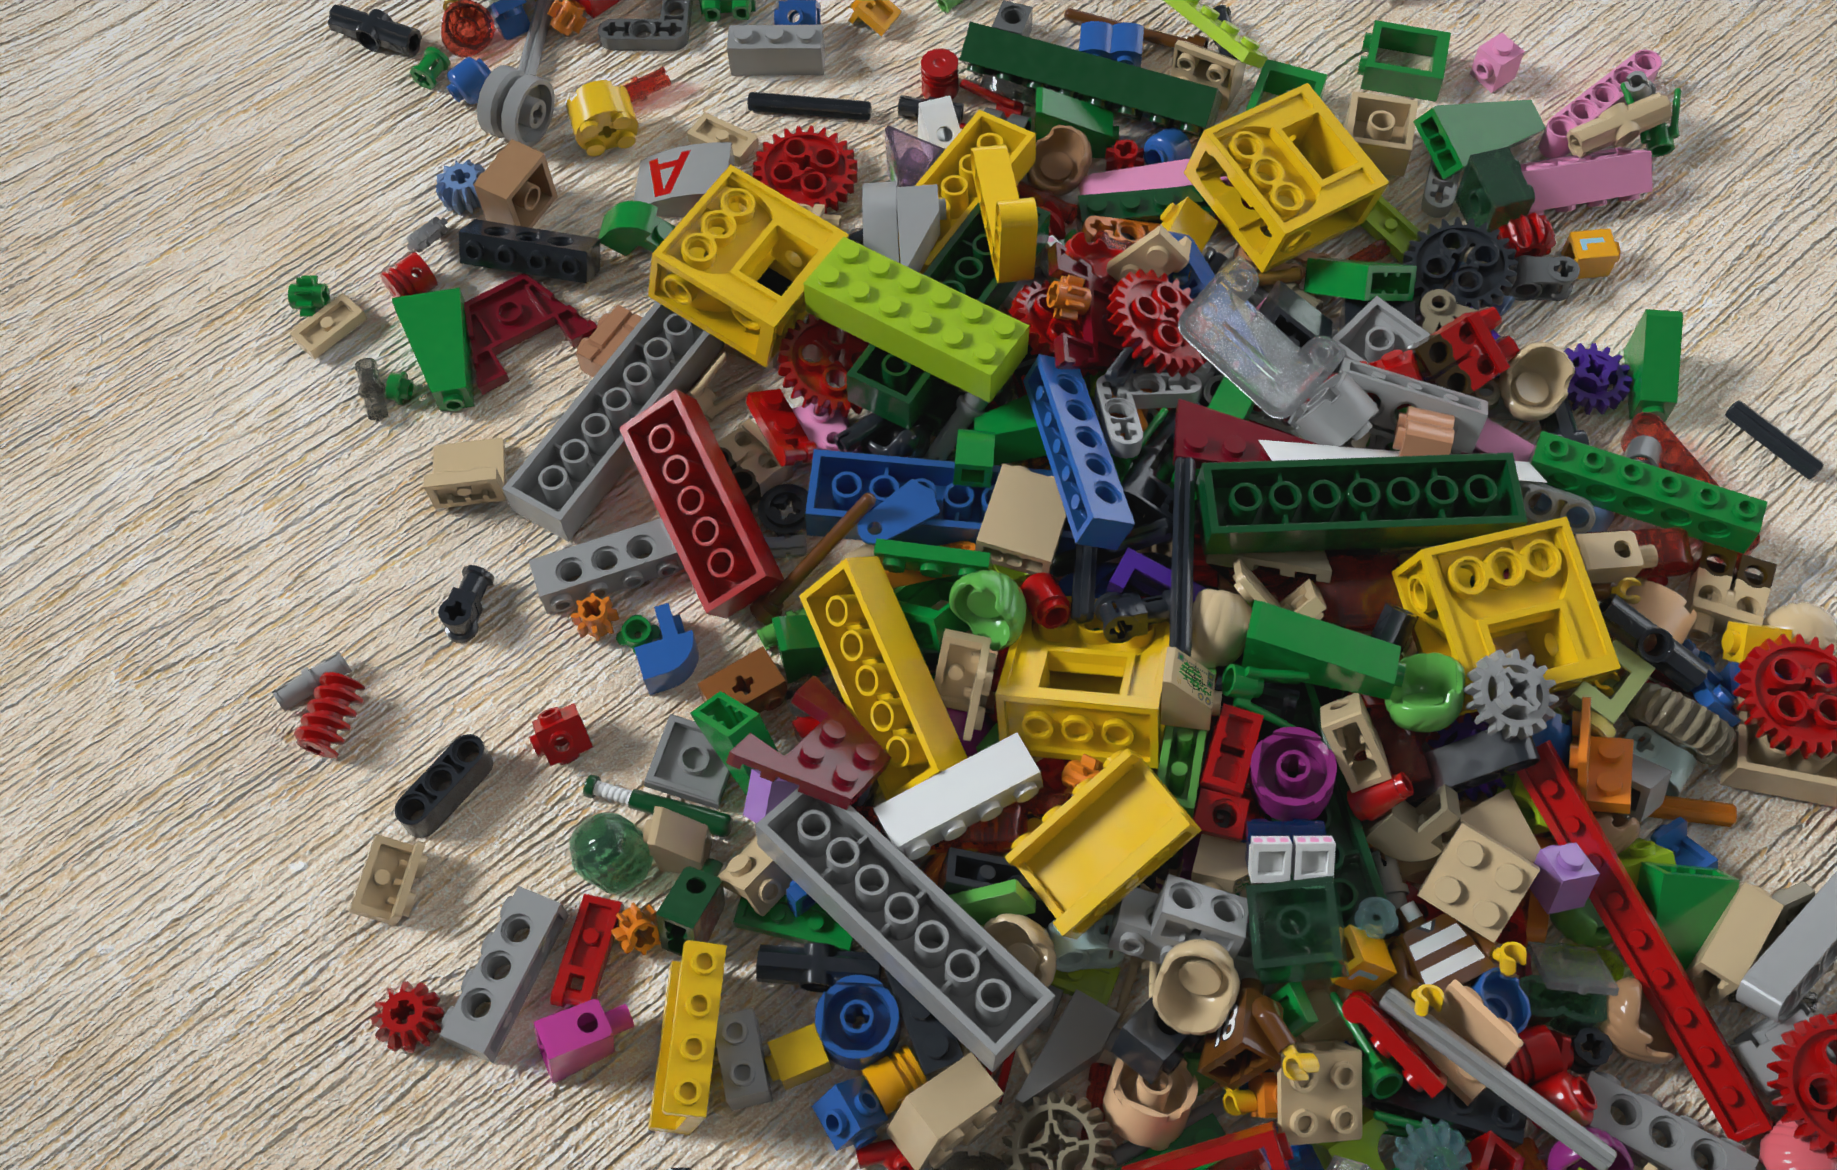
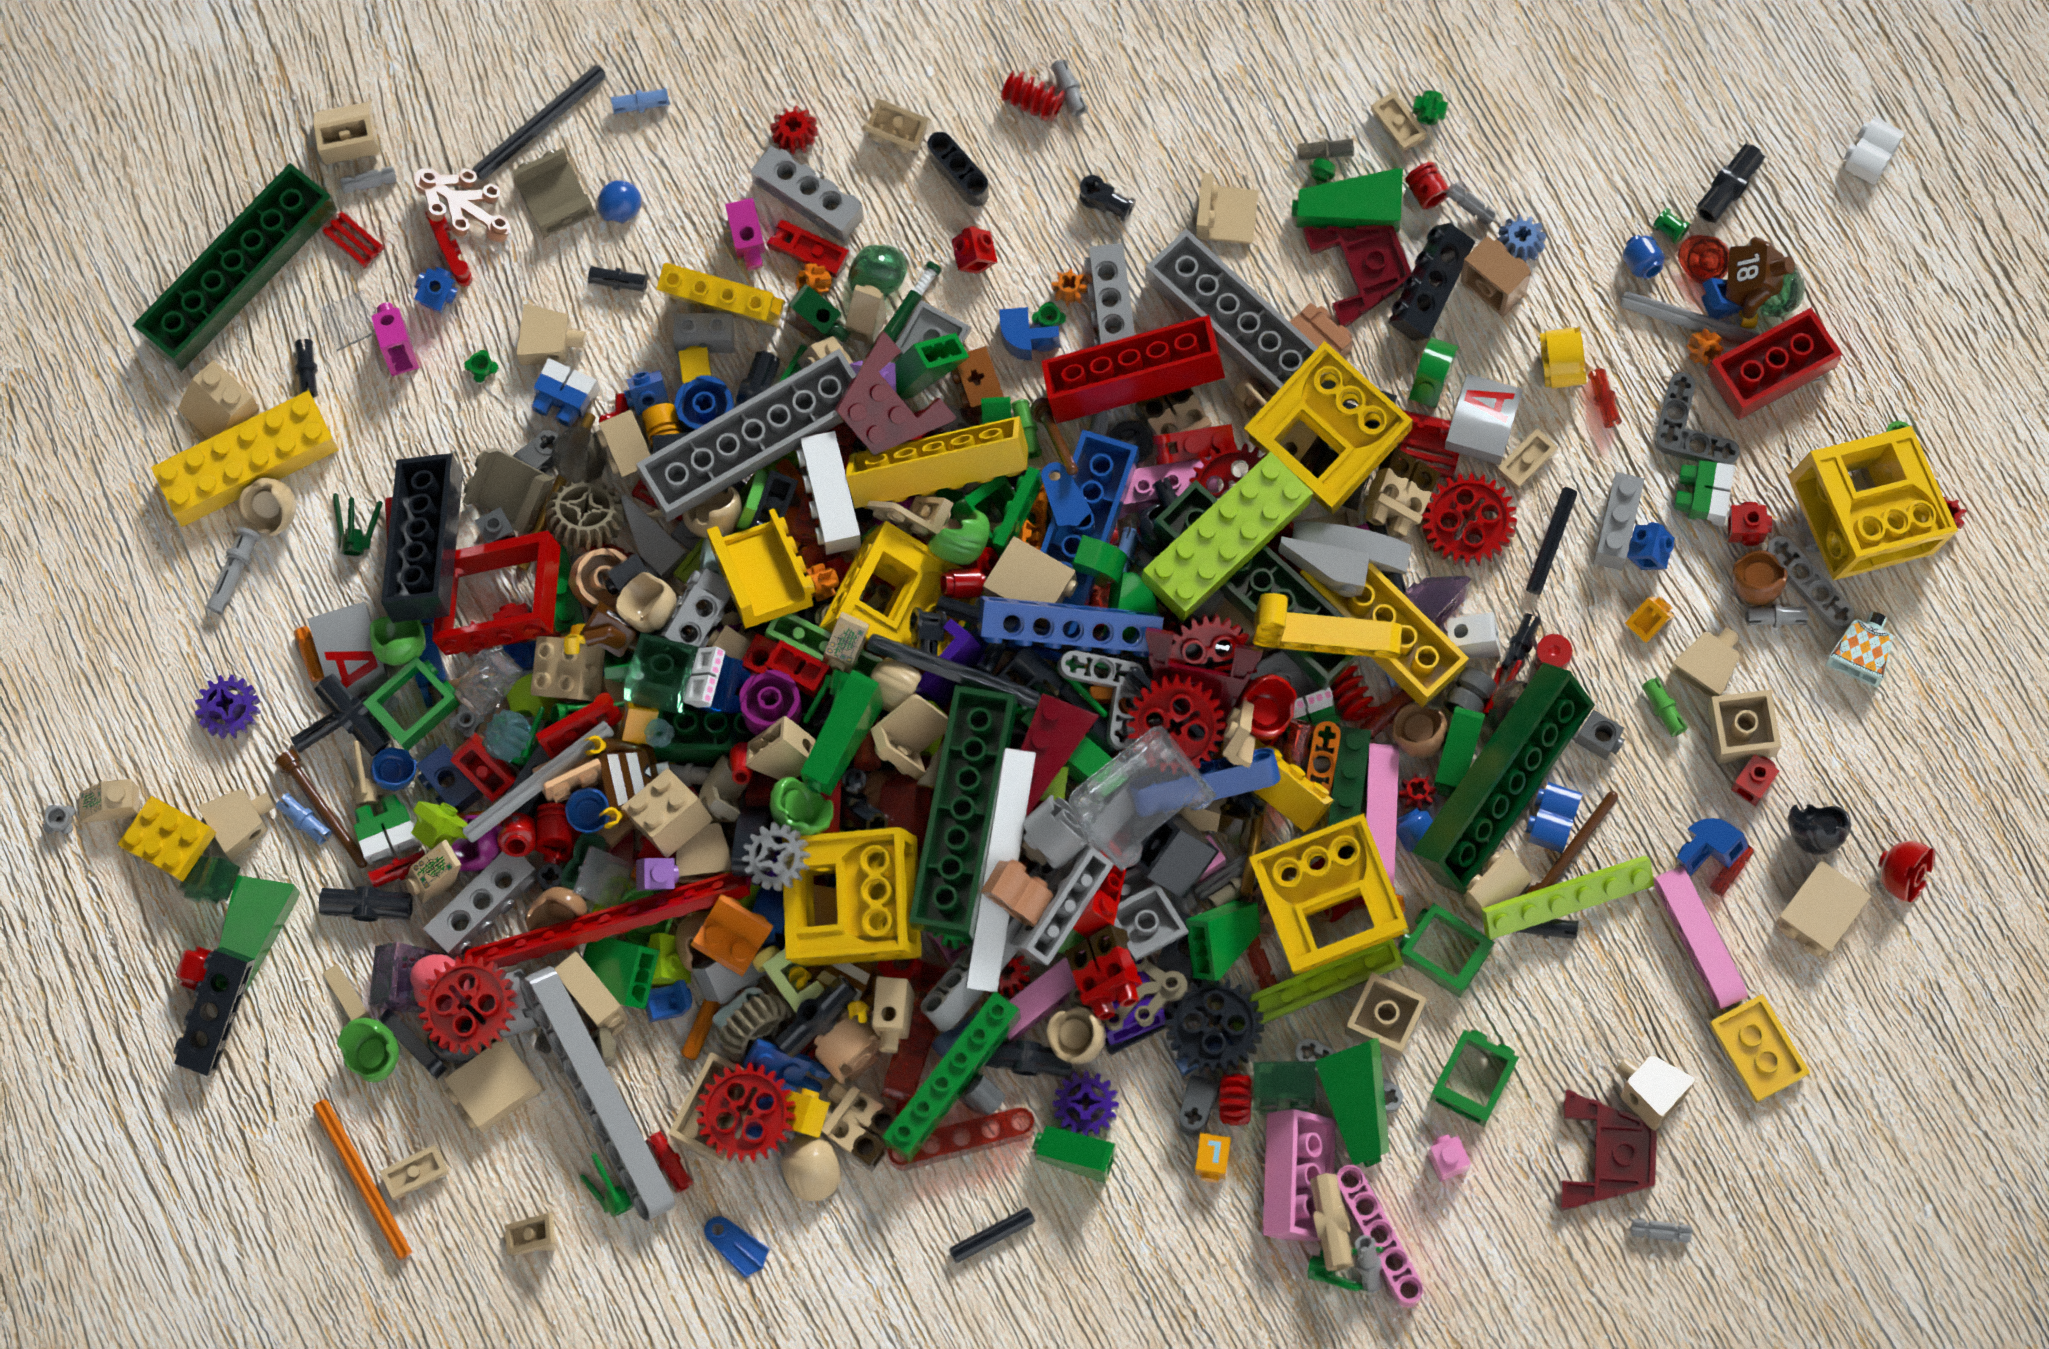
camera: 105 degrees right, 10 degrees up
(515, 105) = (1591, 286): light grey wheel -> none
(1068, 298) = (1214, 656): orange gear -> none

